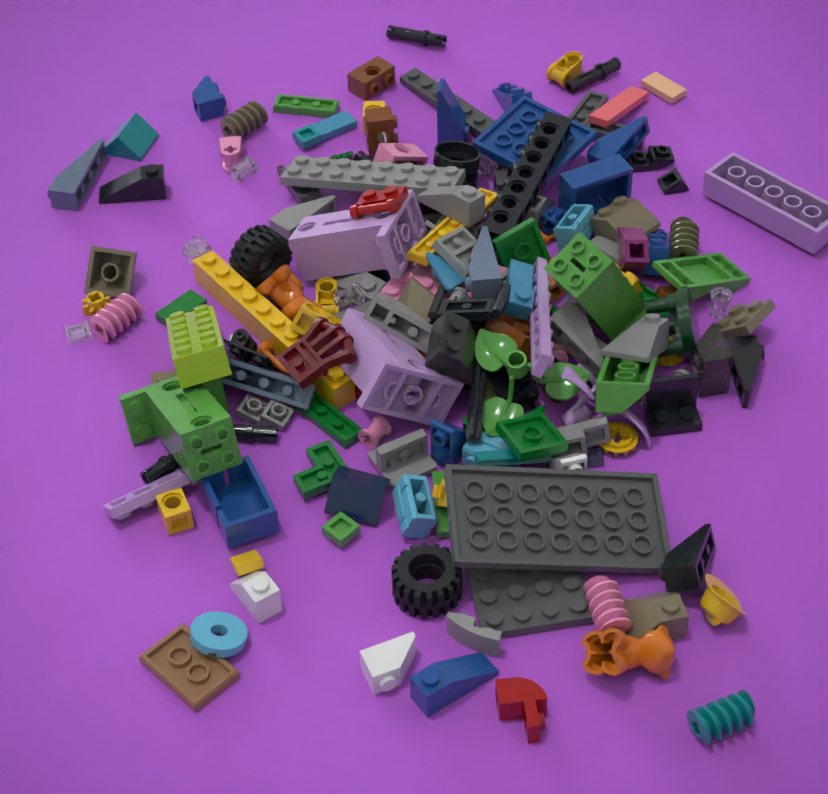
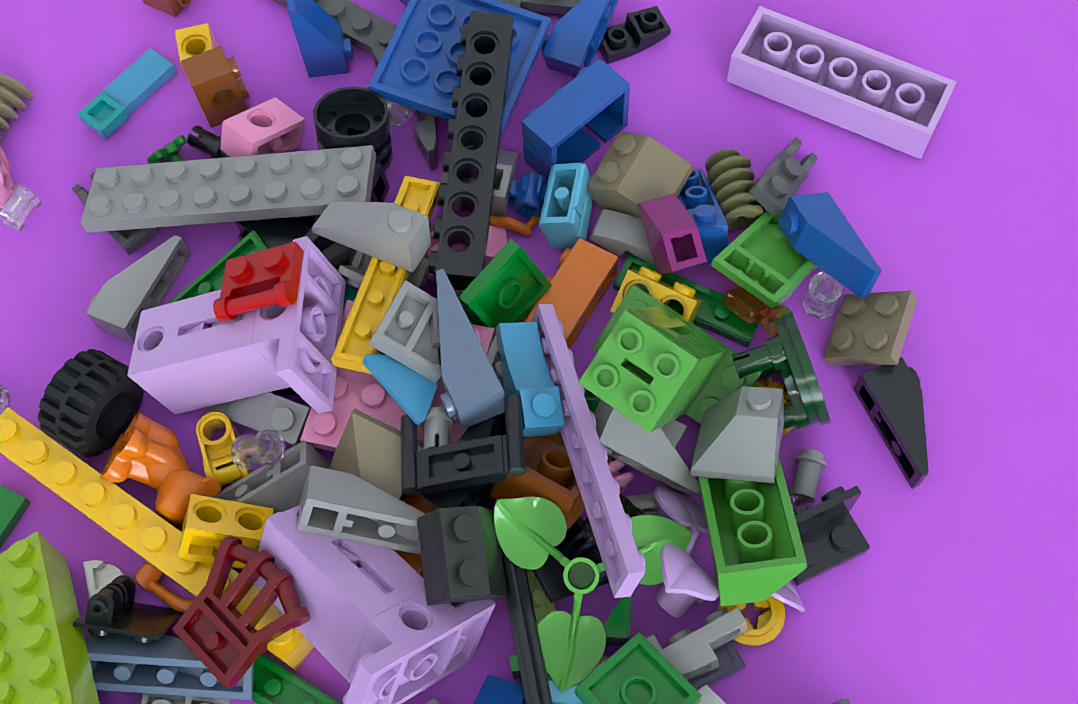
camera: 15 degrees left, 20 degrees up
(305, 106) = (86, 51): bright green tile -> none
(672, 182) = (678, 71): black slope -> none
(712, 363) = (857, 434): clear smoke slope -> none
(716, 240) = (782, 178): none -> dark grey hinge
(729, 269) = (828, 240): none -> blue slope

